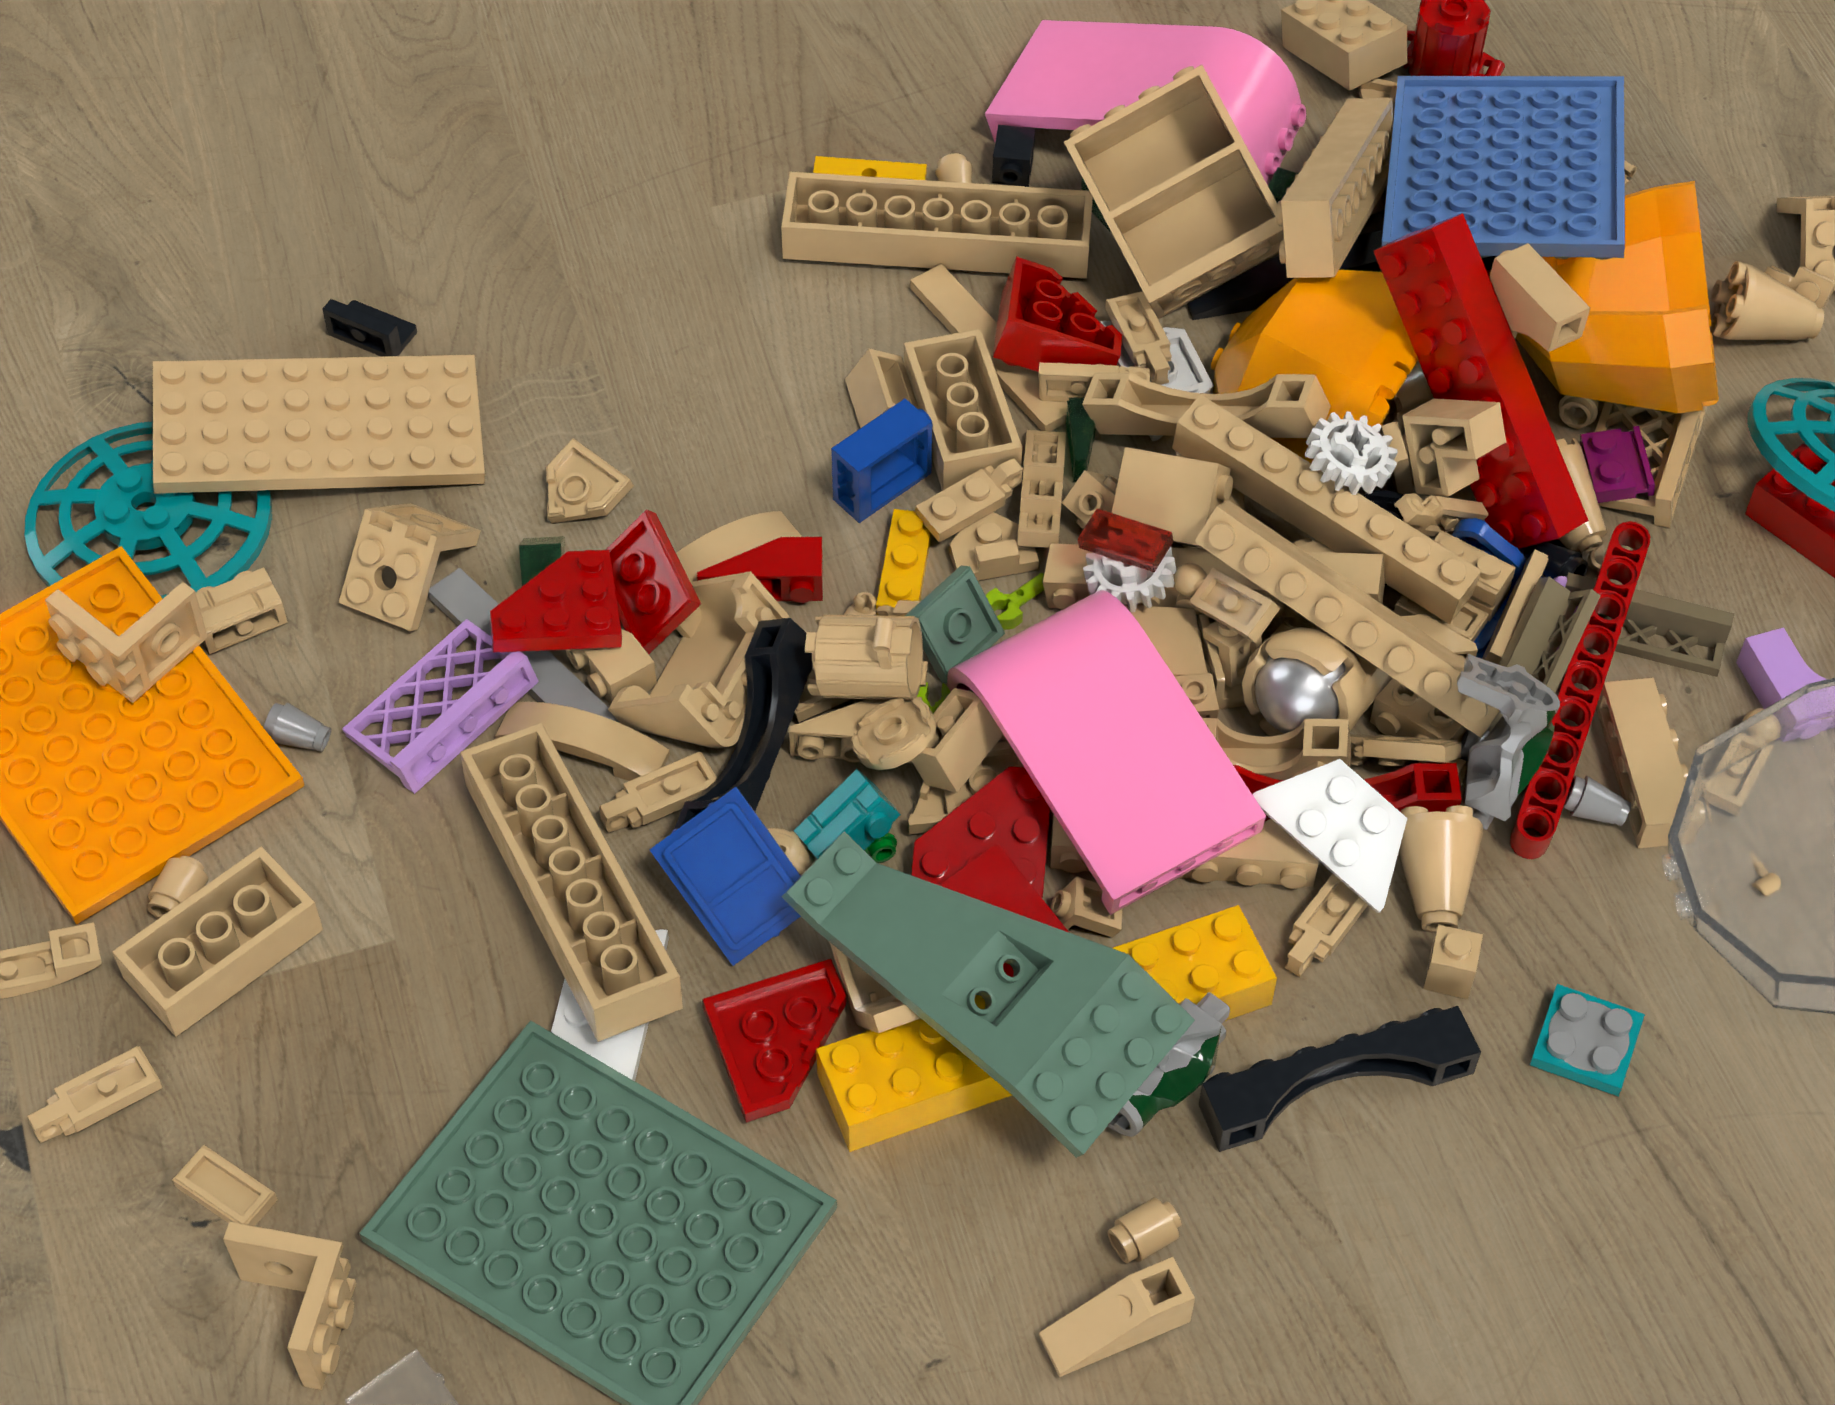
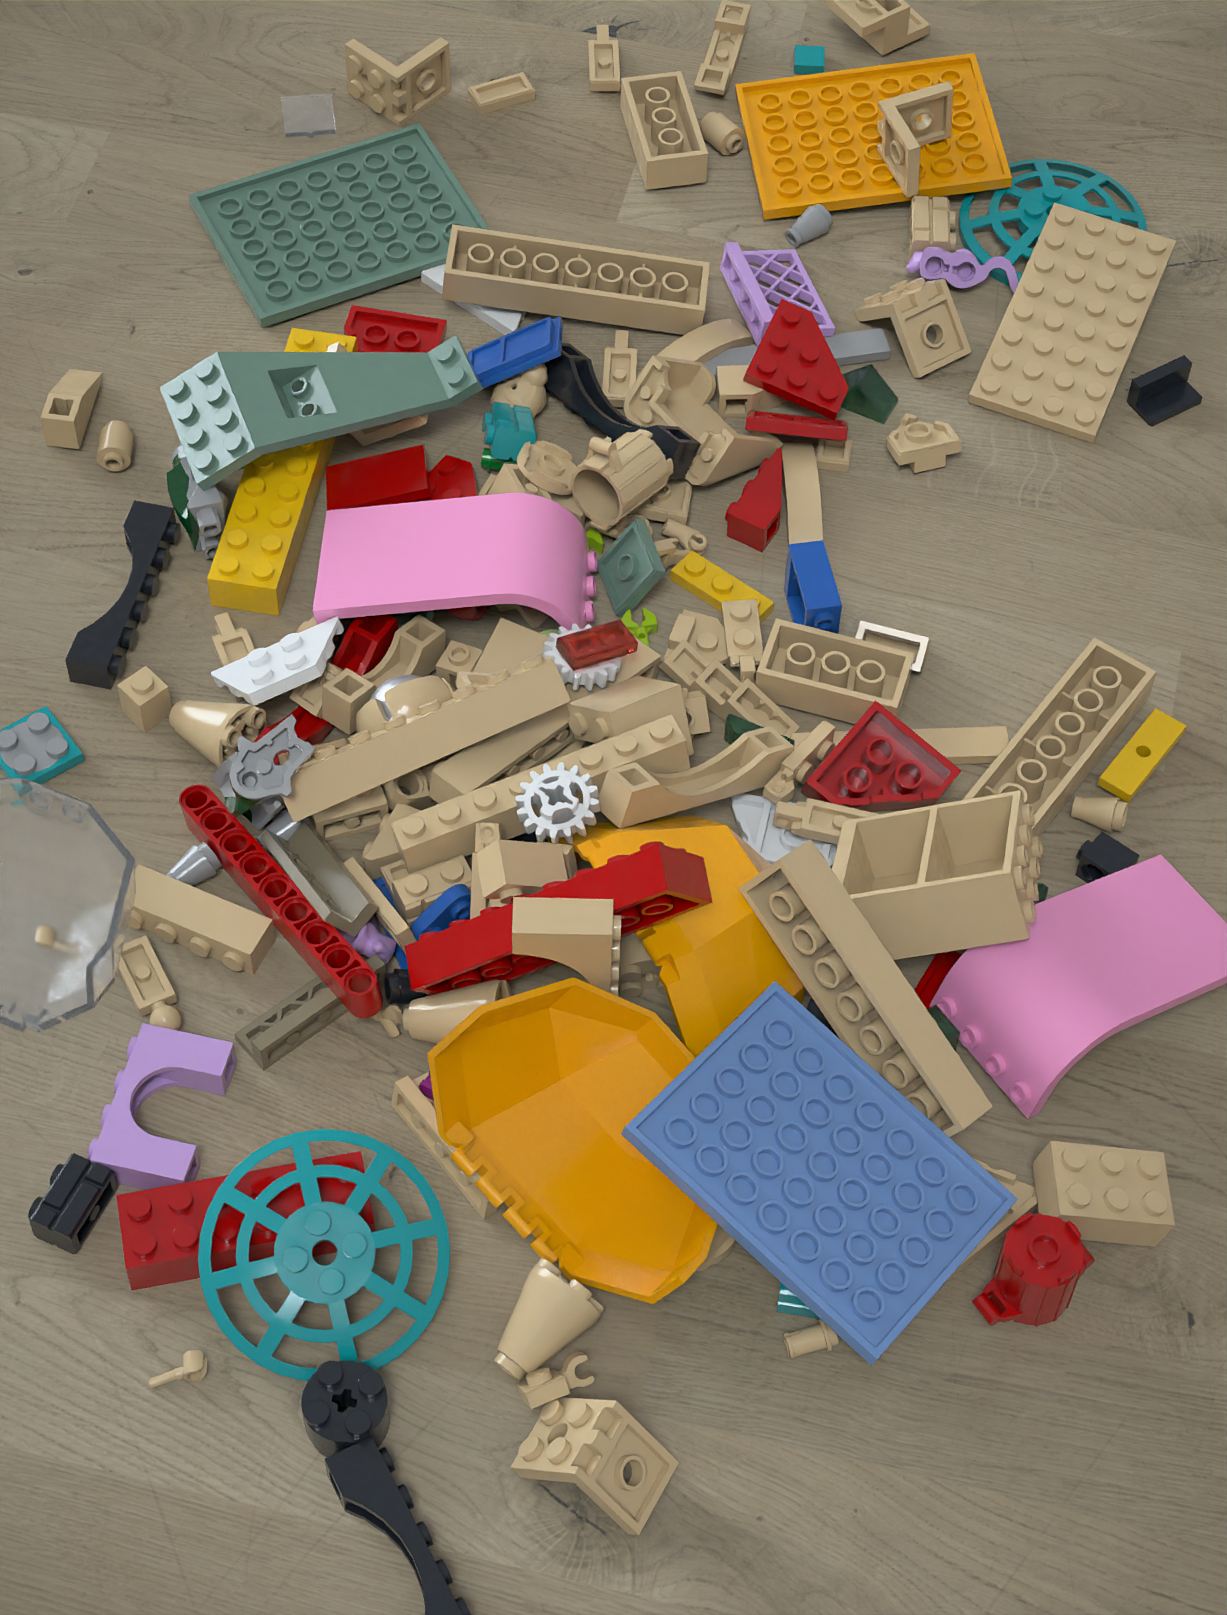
camera: 120 degrees right, 0 degrees up
(291, 558) = (958, 268): none -> lavender animal

